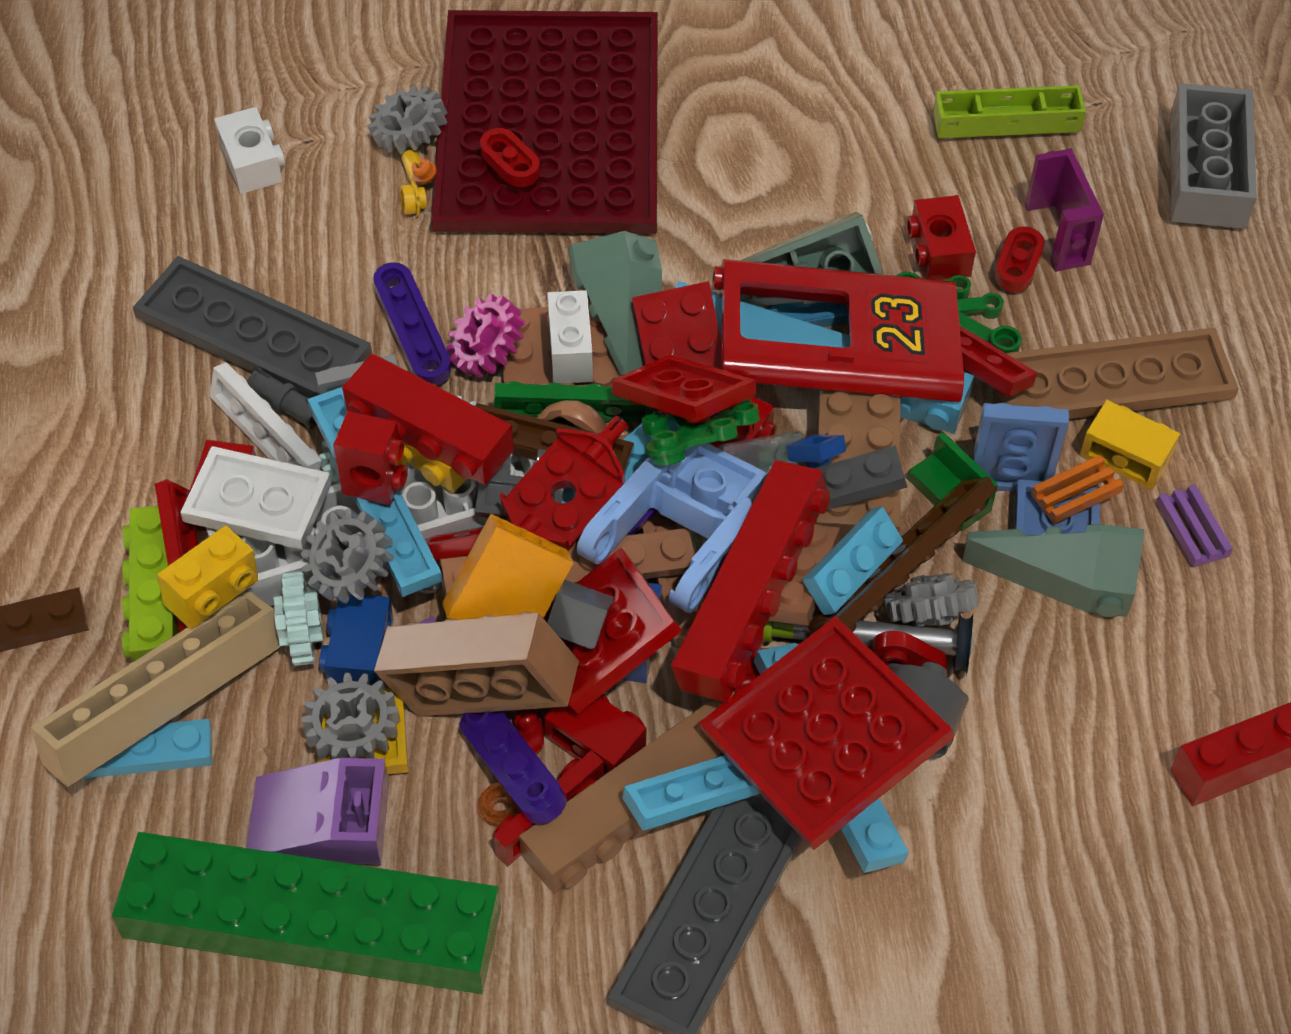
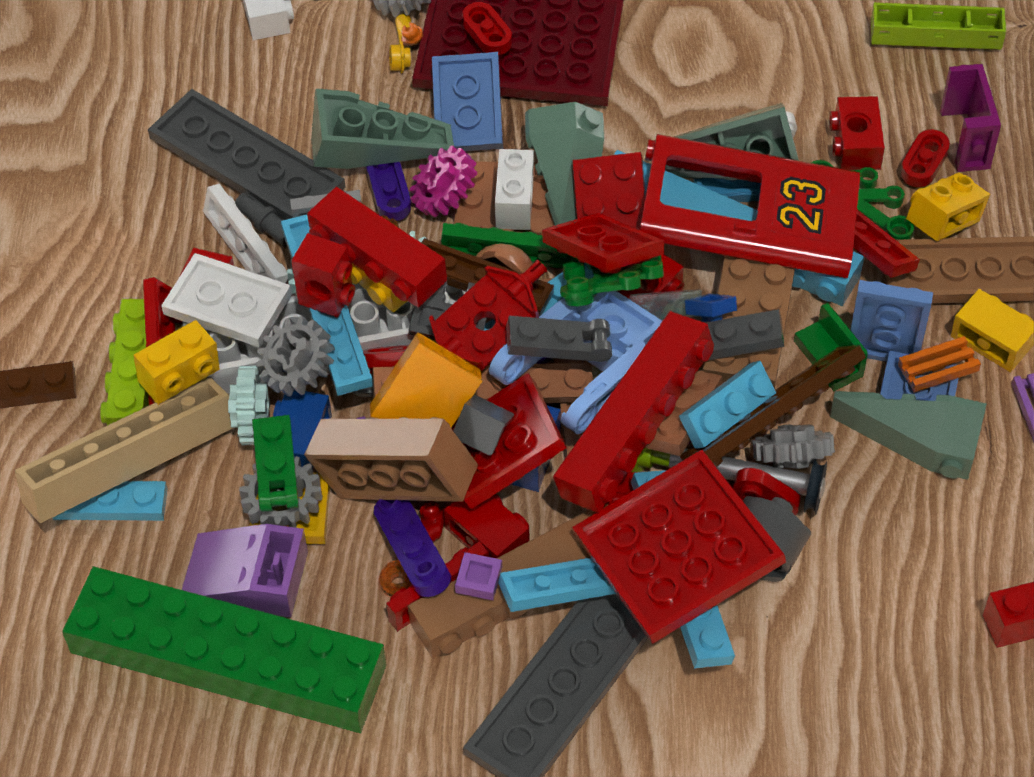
camera: 10 degrees right, 0 degrees up
(341, 684) = (275, 462): none -> green plate
(384, 290) = (363, 134): none -> sand green wedge
(499, 242) = (469, 99): none -> medium blue plate
(598, 792) = (478, 576): none -> medium lavender plate
(652, 504) = (558, 338): none -> dark grey plate
(1055, 310) = (947, 206): none -> yellow brick

